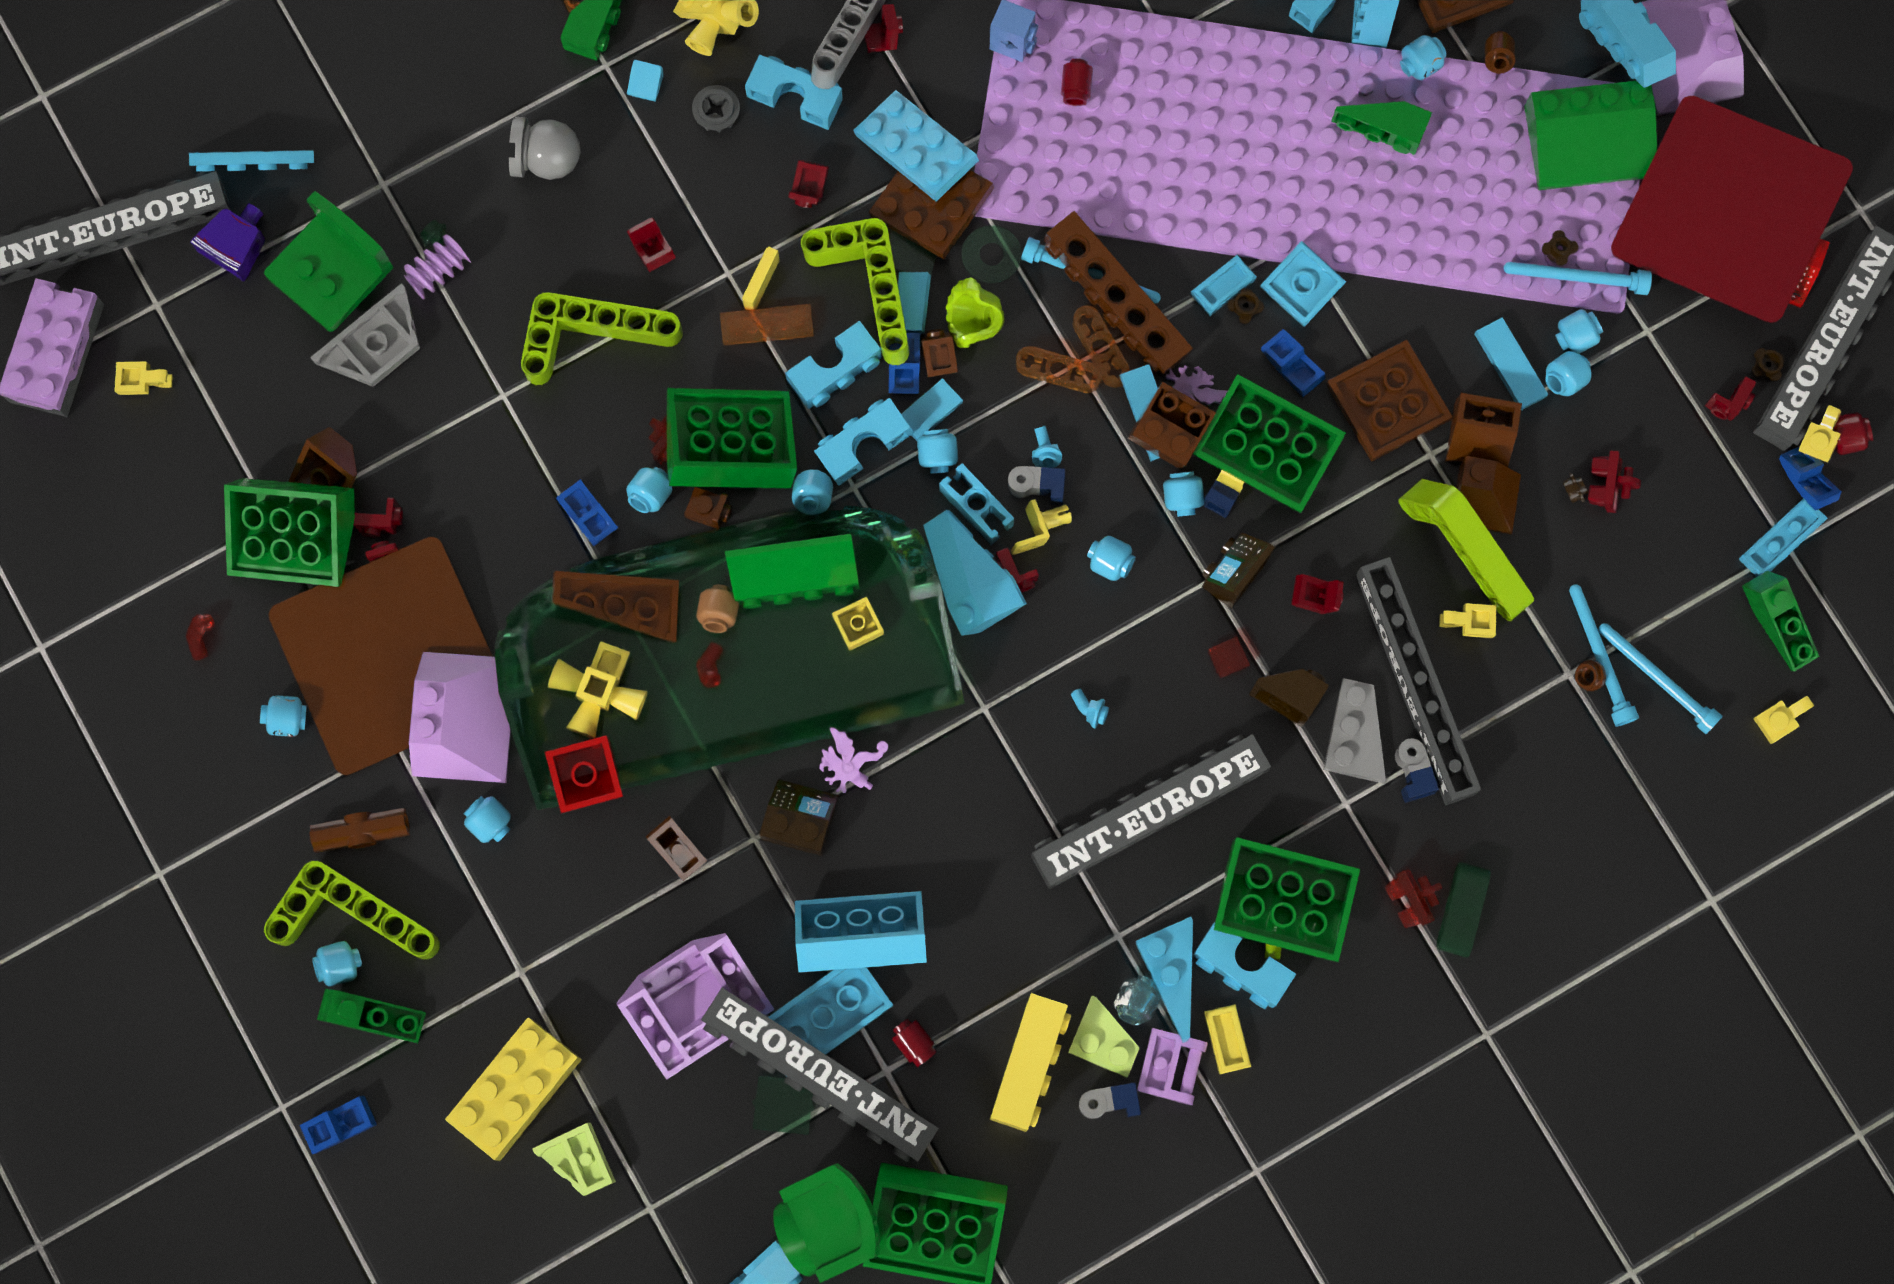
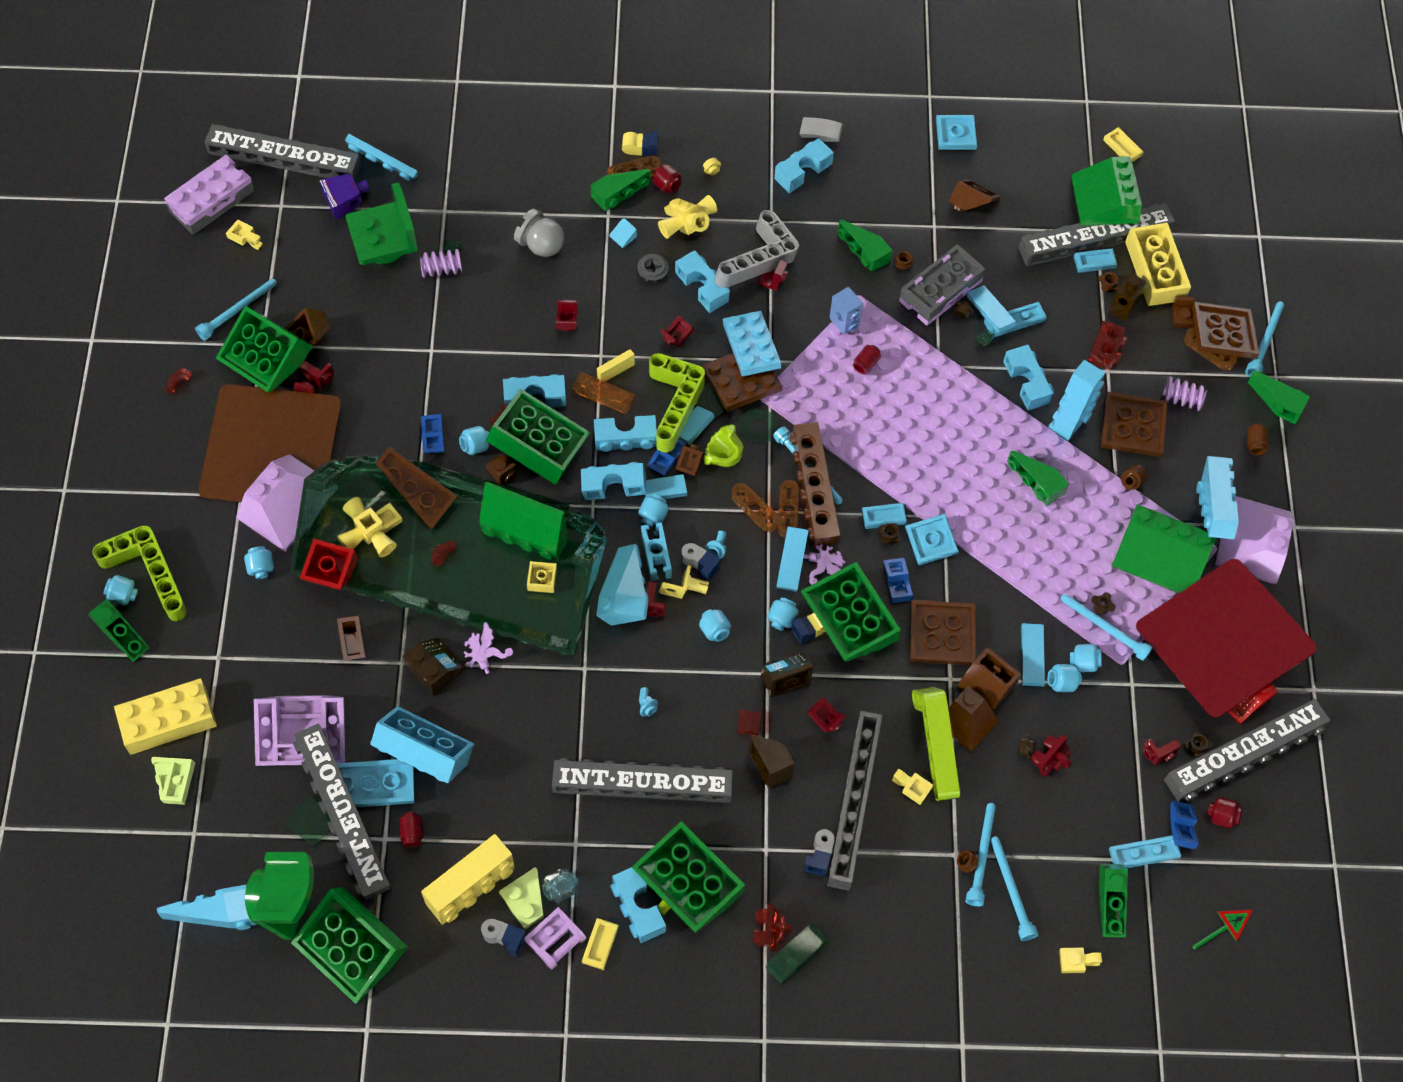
camera: 30 degrees right, 15 degrees down
(187, 545) = (205, 330): none -> medium azure piece
(283, 716) = (190, 444): medium azure head -> none
(338, 1124) = (57, 679): blue slope -> none
(359, 830) = (186, 528): reddish brown piece -> none
(373, 342) = (381, 284): light grey wing -> none
(589, 324) = (504, 337): lime beam -> none
(699, 359) = (549, 387): none -> medium azure arch
(717, 609) = (467, 523): medium nougat head -> none
(812, 492) = (565, 491): medium azure head -> none
(1170, 966) = (593, 877): medium azure wing -> none
(1171, 425) = (797, 568): reddish brown slope -> none
(1355, 734) = (797, 811): light grey wing -> none
(1423, 57) = (1084, 454): medium azure head -> none
(1821, 439) = (1204, 803): light yellow plate -> none

